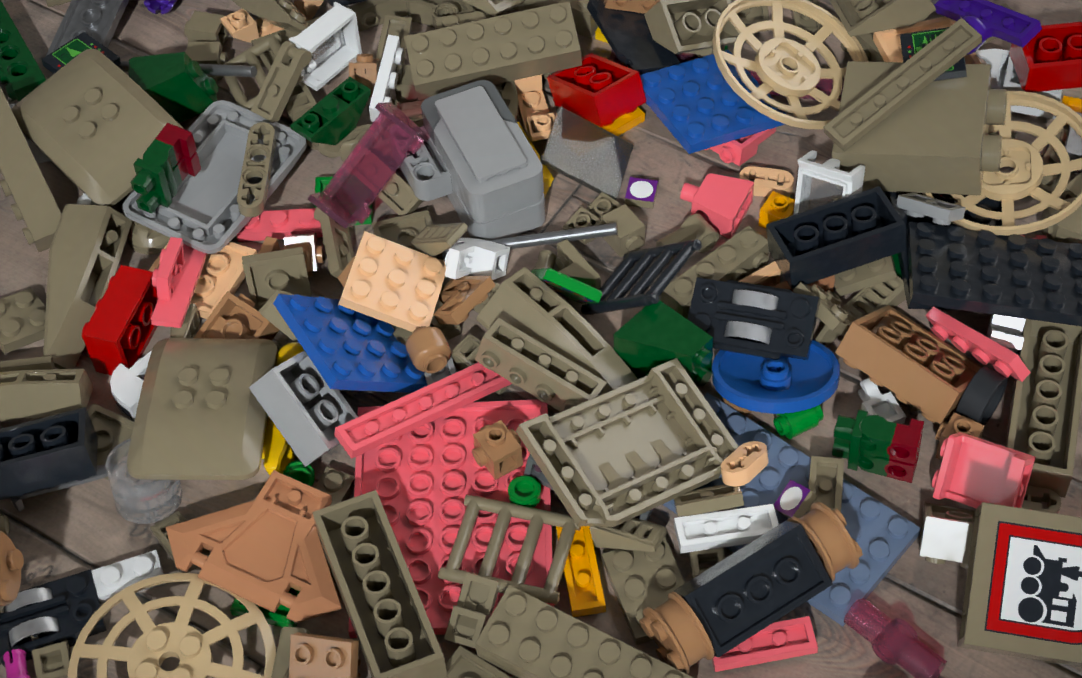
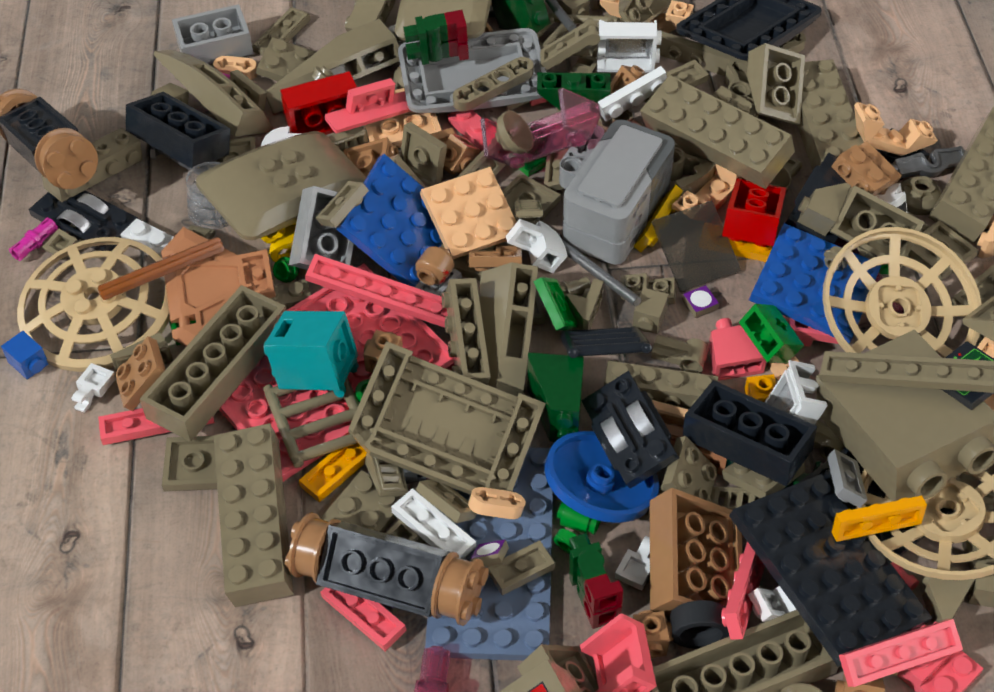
camera: 50 degrees right, 0 degrees up
(92, 292) = (322, 72): none -> dark tan plate
(209, 576) = (160, 268): none -> dark orange axle
(311, 362) = (340, 206): none -> dark tan plate
(342, 191) = (514, 133): none -> dark tan piece
(453, 499) = (312, 351): none -> teal container
(472, 609) = (262, 414): dark tan slope -> none
(651, 40) = (823, 207): none -> dark tan slope
(707, 68) = (830, 254): none -> dark tan plate
(737, 162) = (771, 333): none -> green brick
(817, 441) = (562, 539): none -> green tile
(994, 208) = (879, 518): none -> light orange plate

